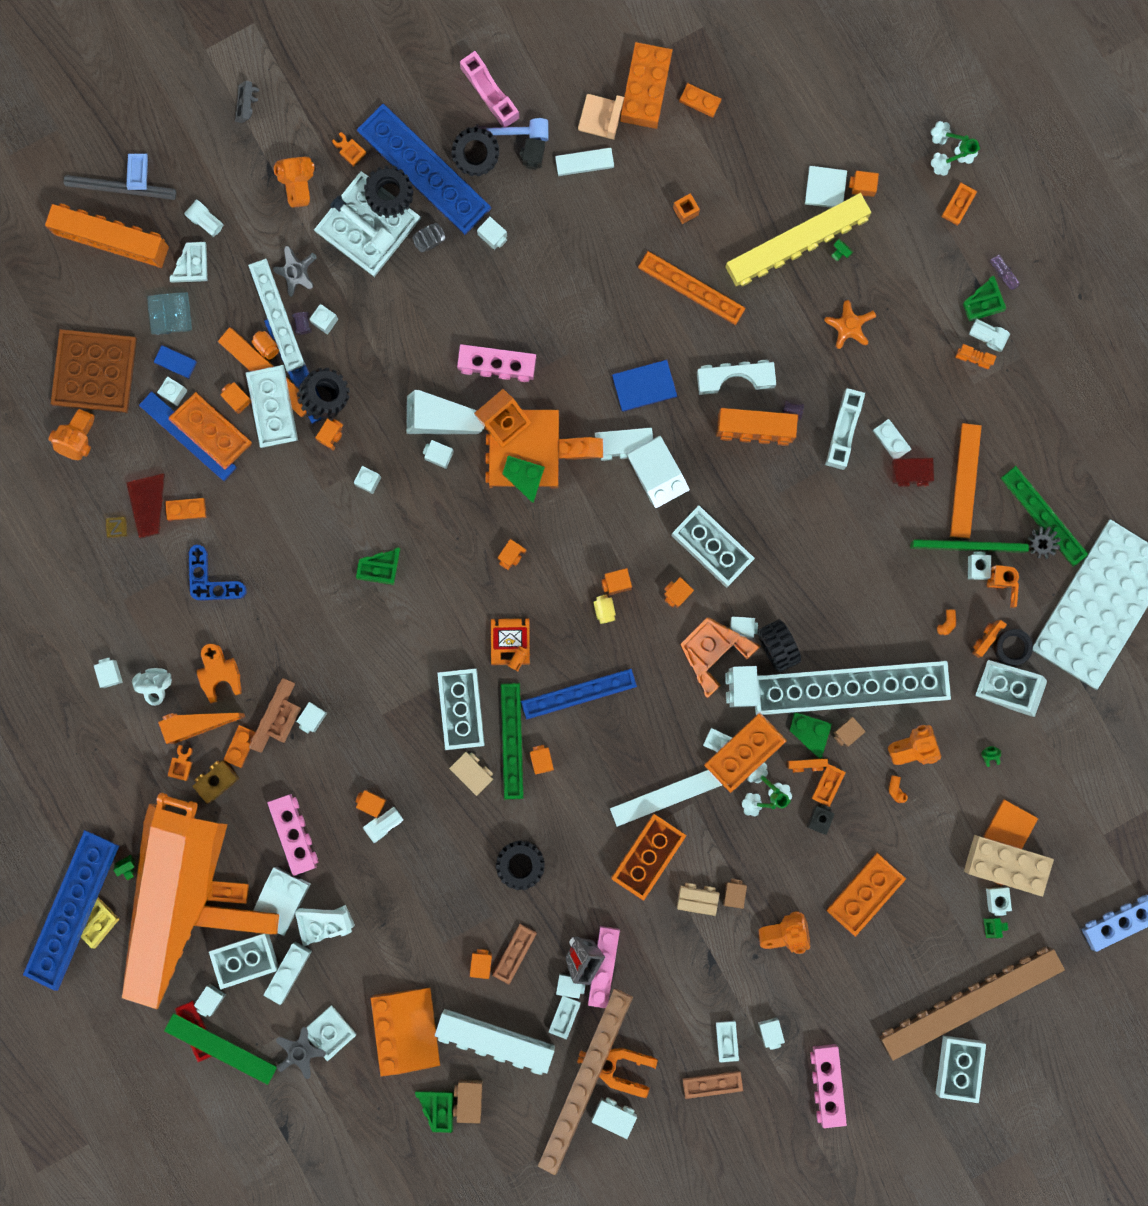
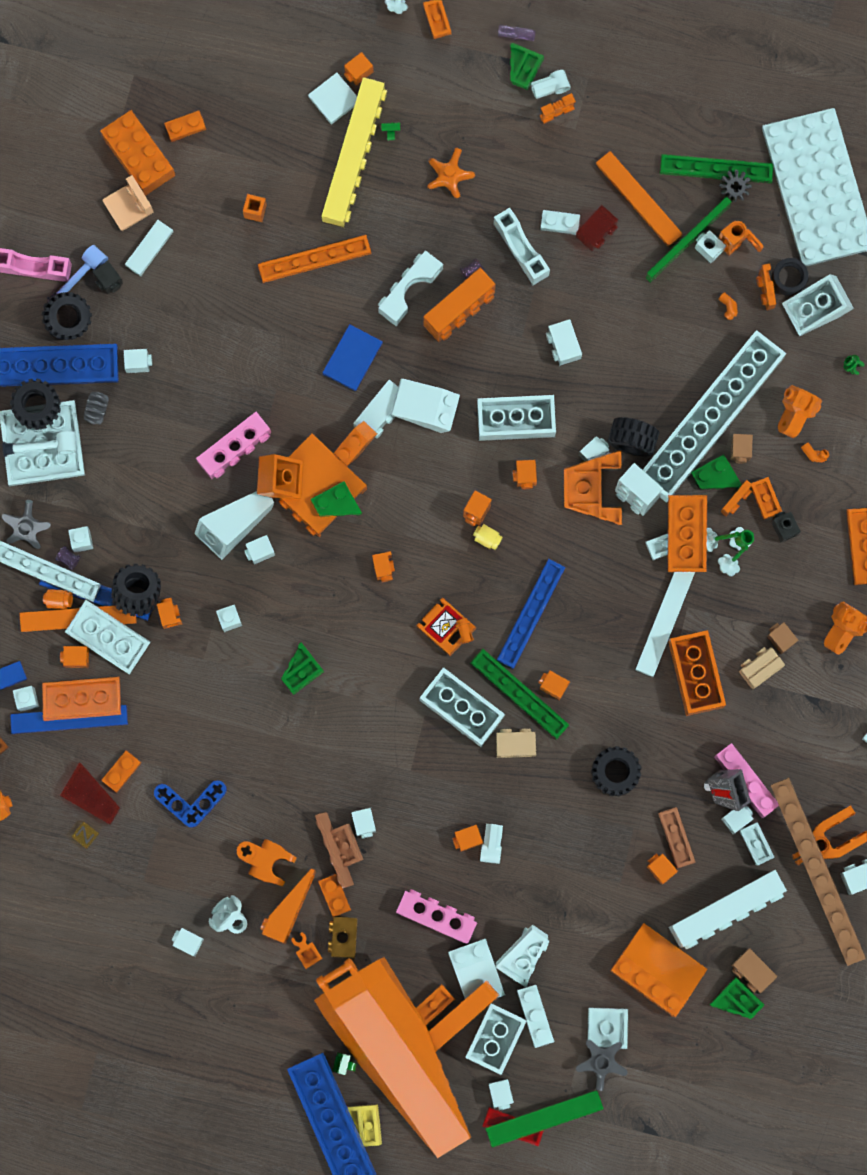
camera: 45 degrees left, 5 degrees down
(803, 528) = (564, 342): none -> light aqua brick

